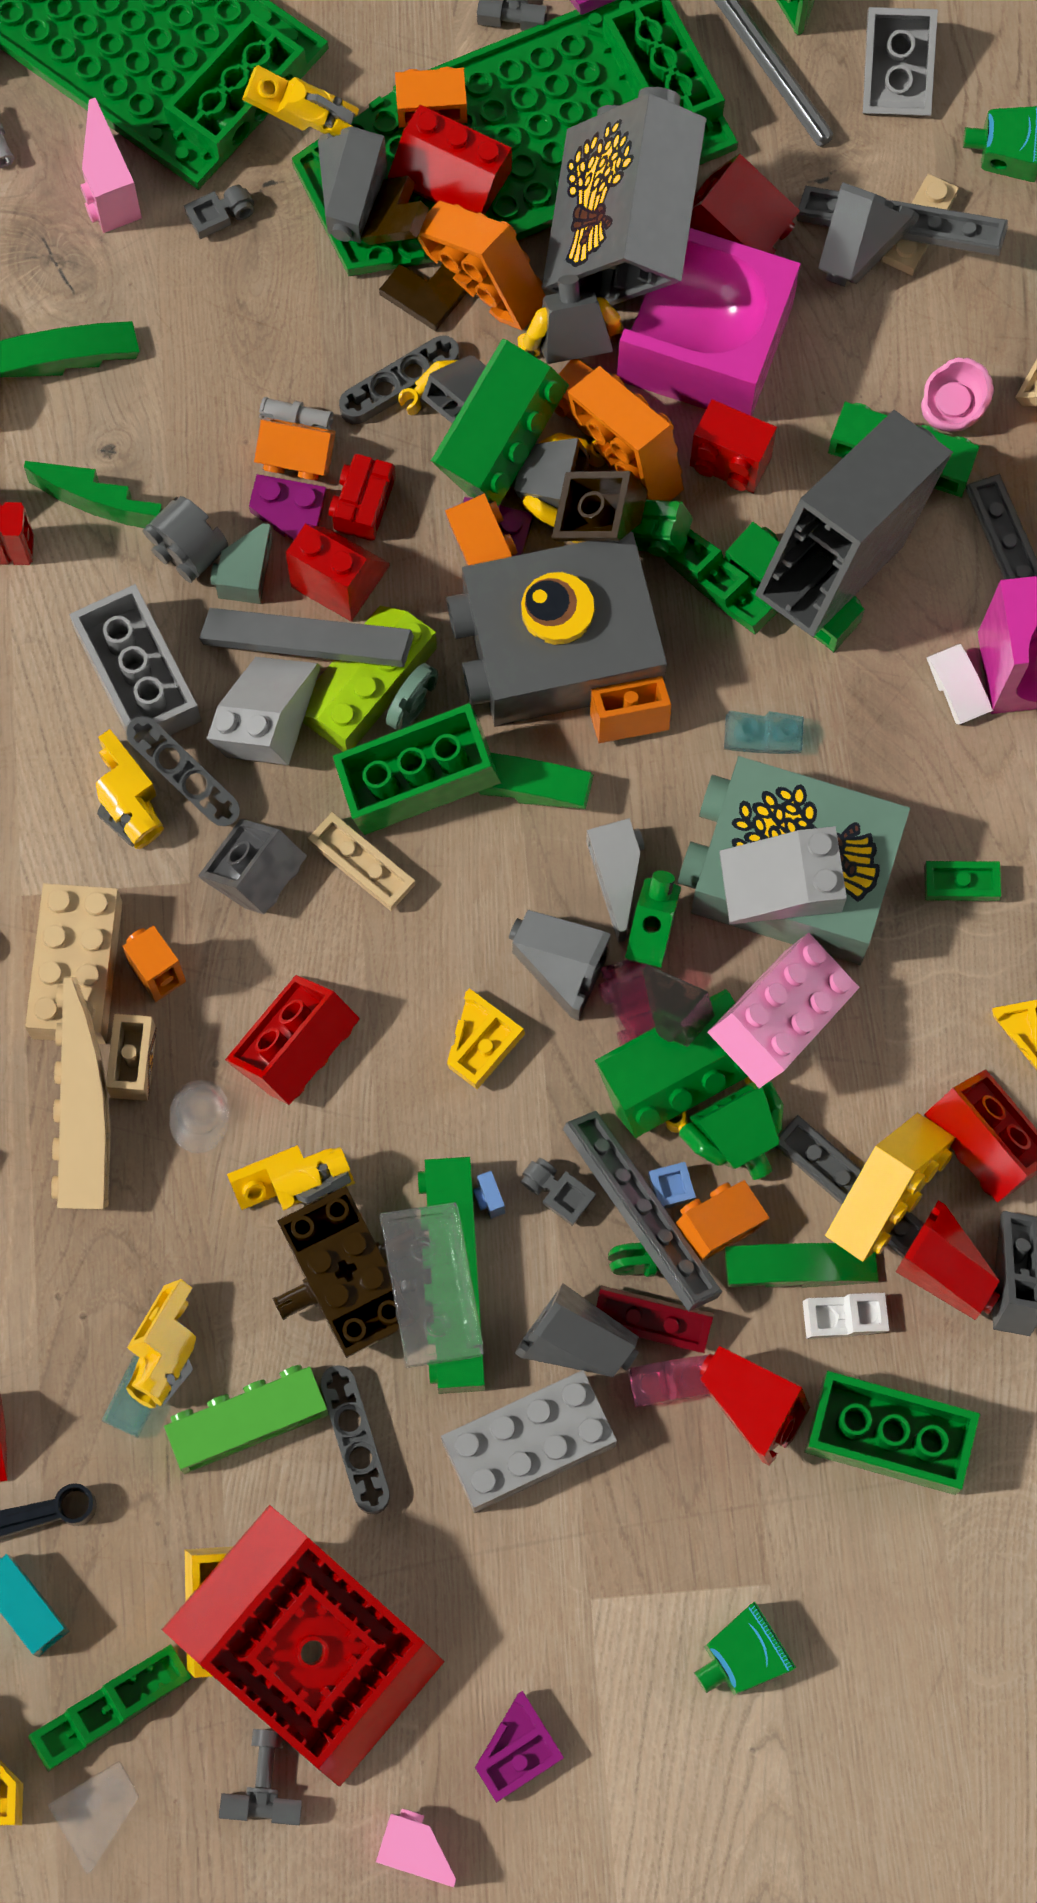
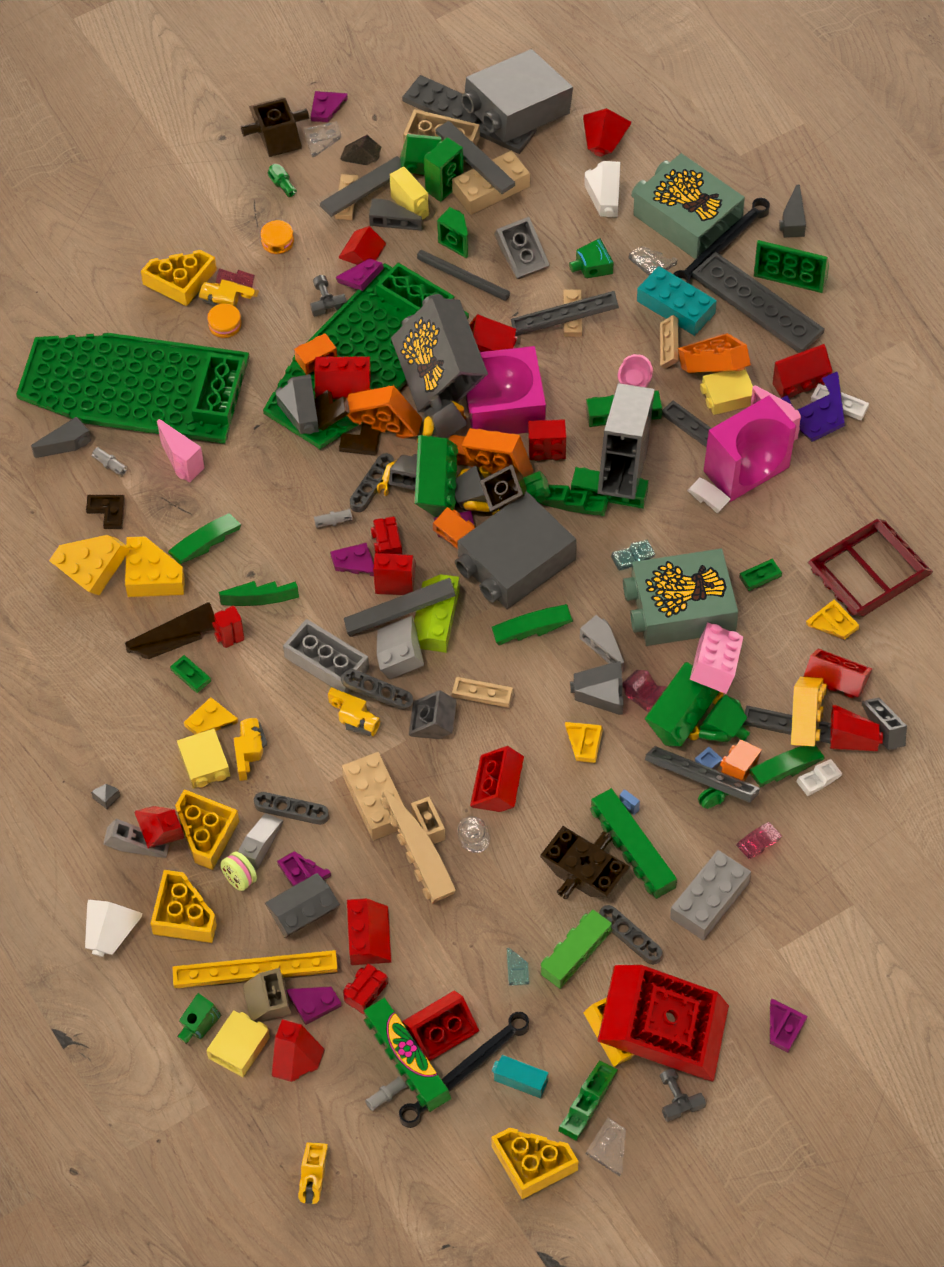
camera: 25 degrees left, 15 degrees down
(153, 962) = (414, 775): orange brick -> none
(162, 1348) = (518, 935): yellow plate -> none
(185, 538) = (316, 590): dark grey brick -> none
(211, 214) = (239, 450): dark grey plate -> none
(244, 567) = (349, 593): sand green slope -> none
(291, 1177) = (534, 837): yellow plate -> none
(295, 448) = (342, 530): orange brick -> none
(298, 102) = (256, 381): yellow plate -> none
(411, 697) = (464, 610): sand green tile -> none
(414, 1849) = (765, 1088): bright pink slope -> none
(416, 769) = (486, 638): green brick -> none
(431, 1285) = (629, 845): clear container -> none
(557, 608) = (512, 537): tile -> none
(565, 1198) = (664, 787): dark grey plate -> none
(578, 1337) = (706, 838): dark grey slope -> none
(630, 709) = (567, 570): orange brick -> none
(657, 910) = (634, 649): green torso -> none
(657, 1319) = (734, 818): dark red plate -> none
(676, 1006) = (668, 676): clear smoke slope -> none
(744, 1654) = (861, 935): green torso -> none
(755, 1400) = (801, 825): red slope -> none
(784, 876) = (685, 599): light grey slope -> none
(861, 233) = (552, 324): dark grey slope -> none
(892, 1433) = (869, 812): green brick -> none

